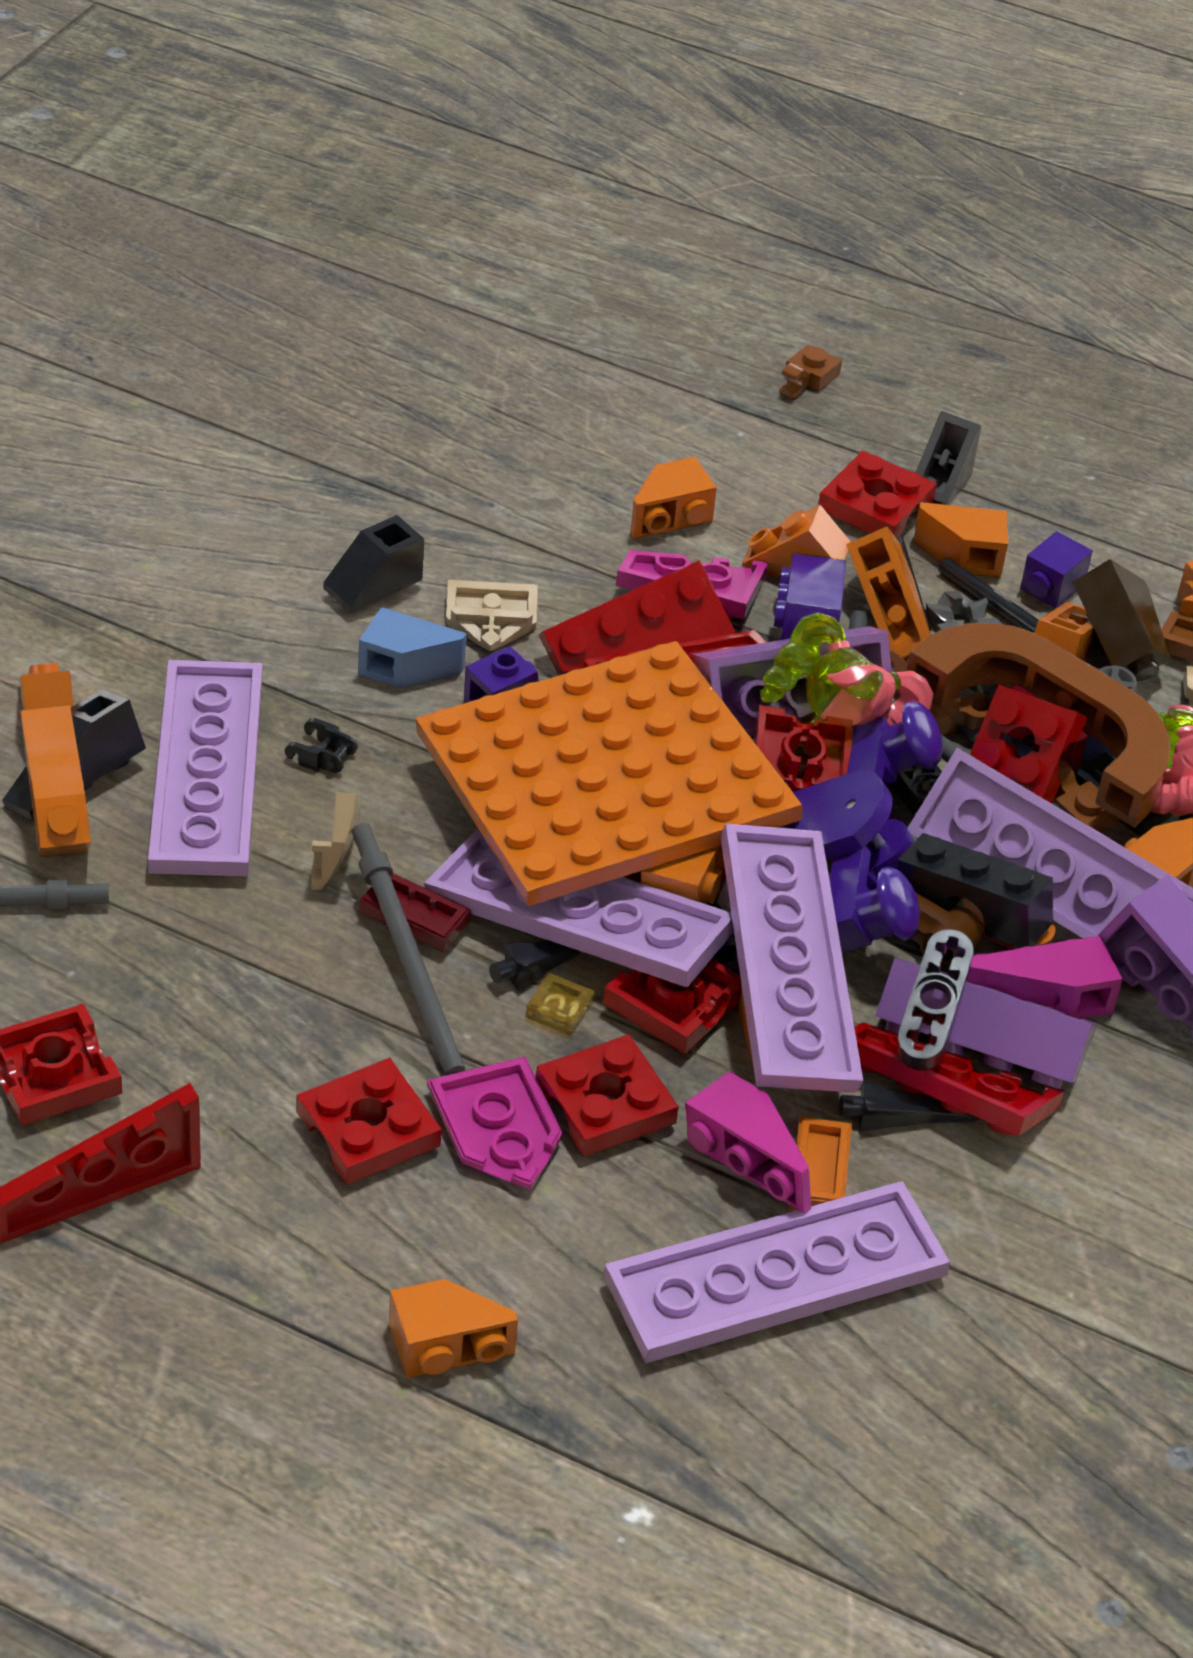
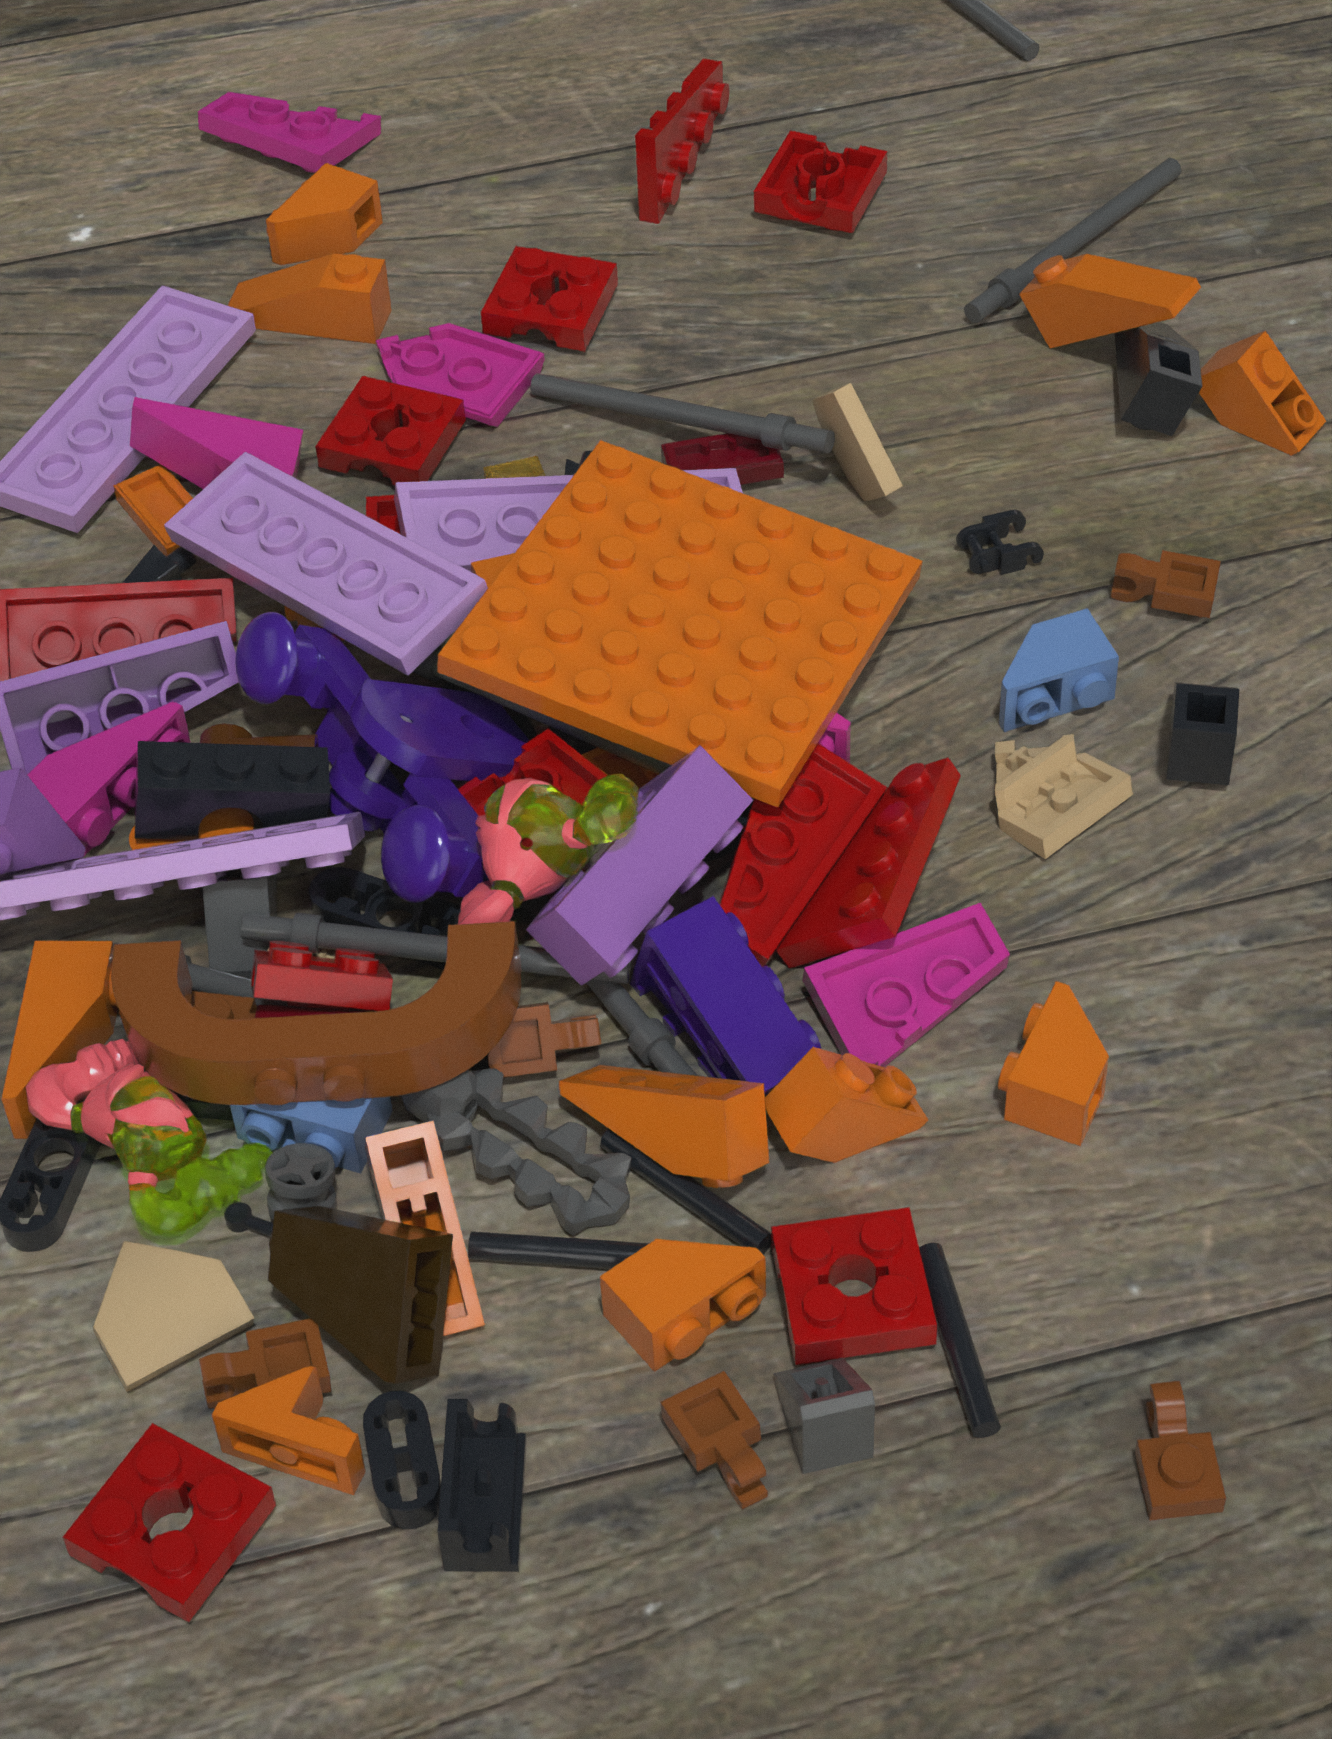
camera: 145 degrees right, 5 degrees up
(206, 769) = (1060, 451): lavender plate -> none
(270, 645) = (1177, 582): none -> dark orange plate
(368, 1461) = (292, 136): none -> dark pink wing
(497, 674) = (923, 712): dark purple brick -> none
(542, 1254) = (321, 298): none -> orange slope
(863, 442) = (959, 1343): none -> black bar
(939, 1019) = (152, 605): beam -> none
(1003, 490) = (719, 1427): none -> dark orange plate
(1054, 567) = (528, 1334): dark purple brick -> none
(1140, 538) = (481, 1490): none -> black hinge
(1165, 580) = (389, 1461): none -> black beam

